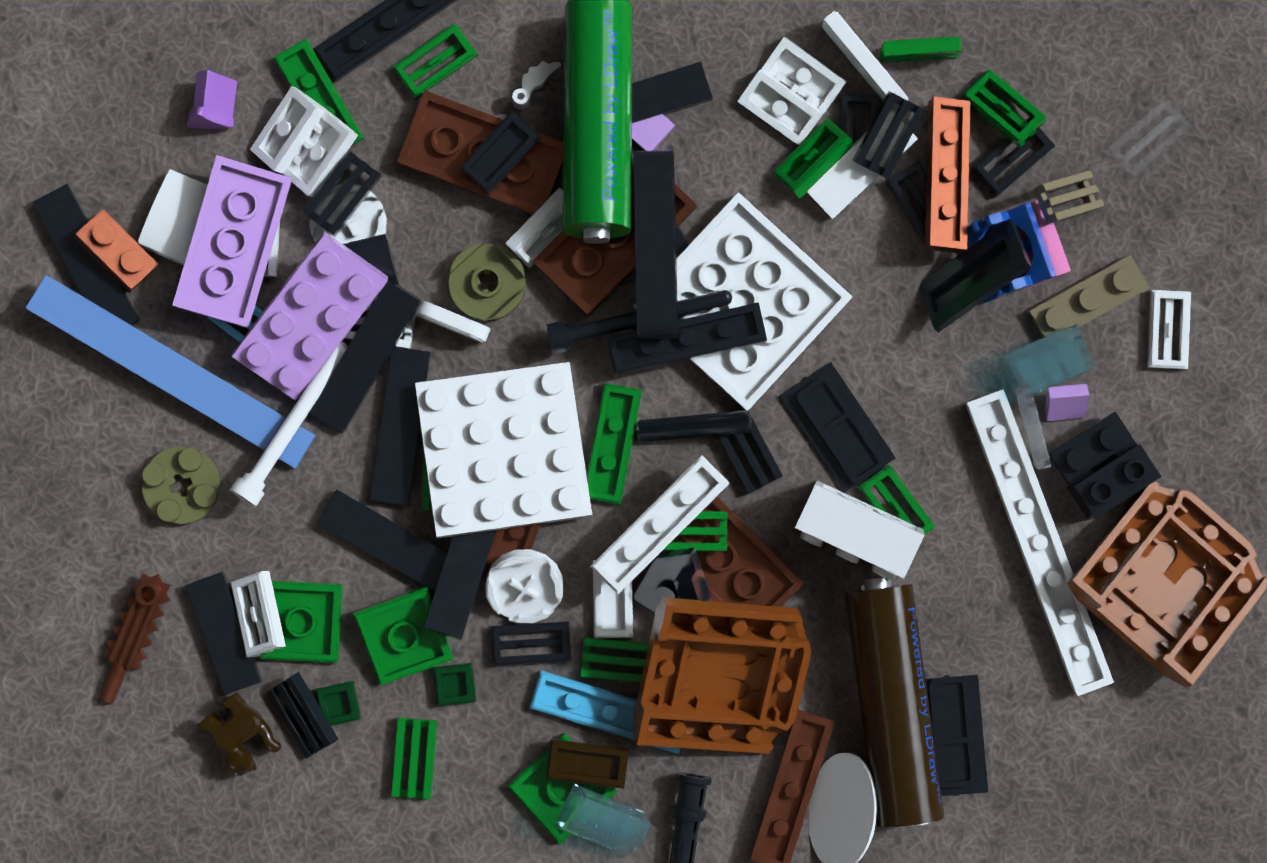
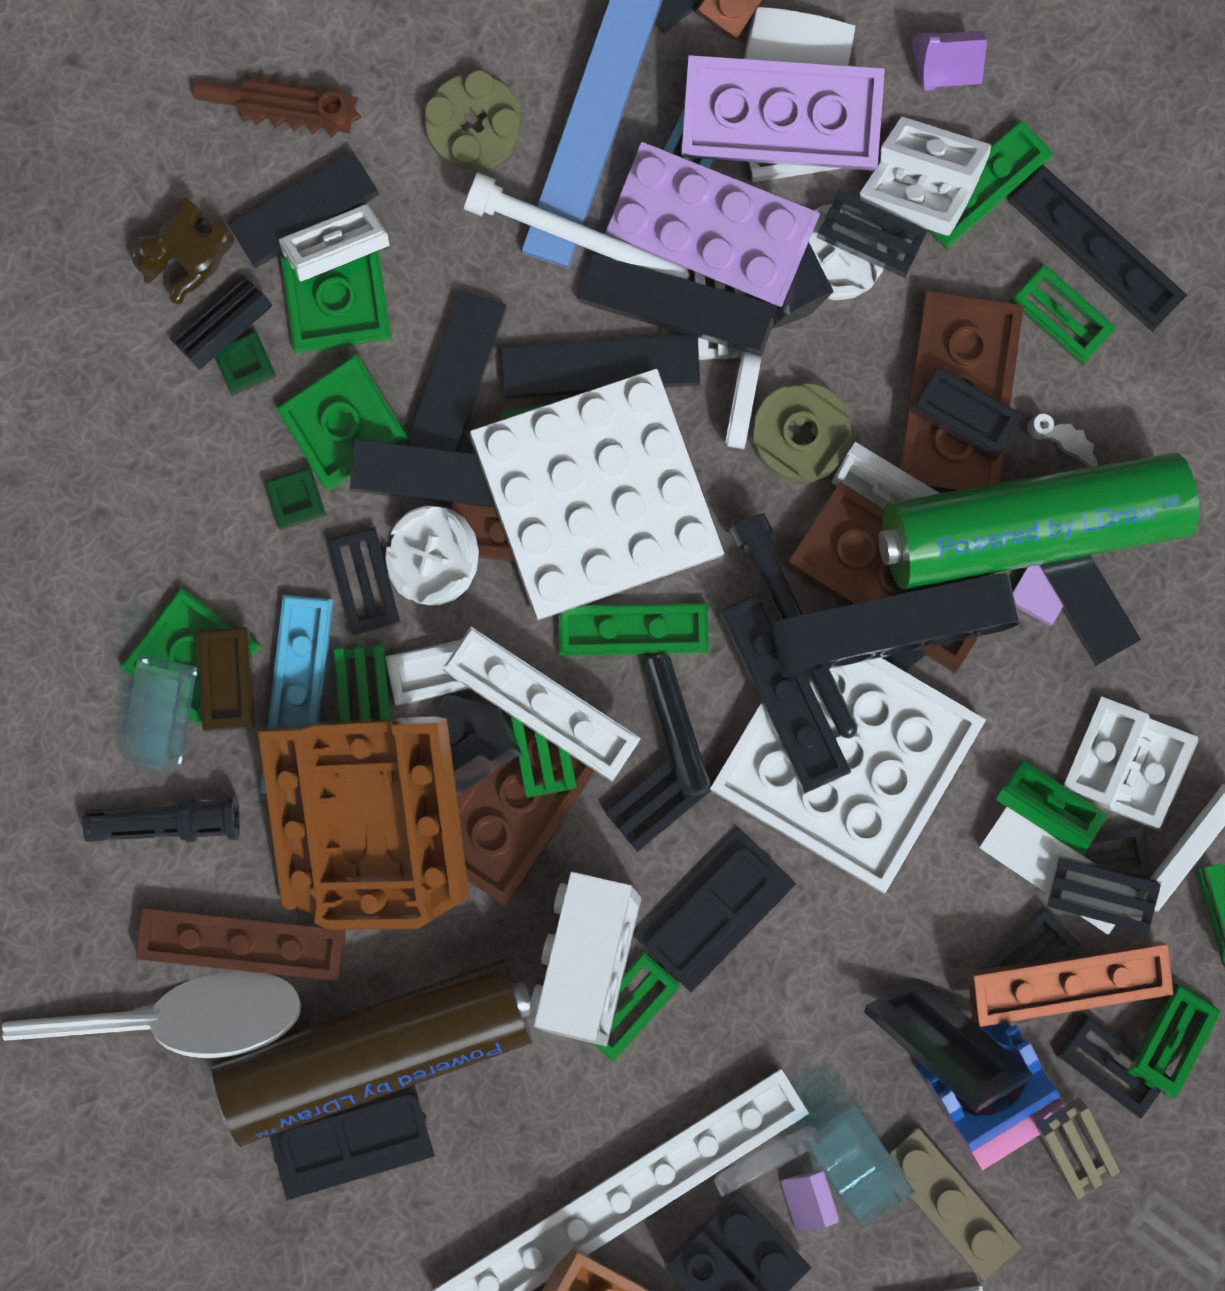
camera: 80 degrees right, 5 degrees down
(412, 792) = (153, 473): green tile -> none

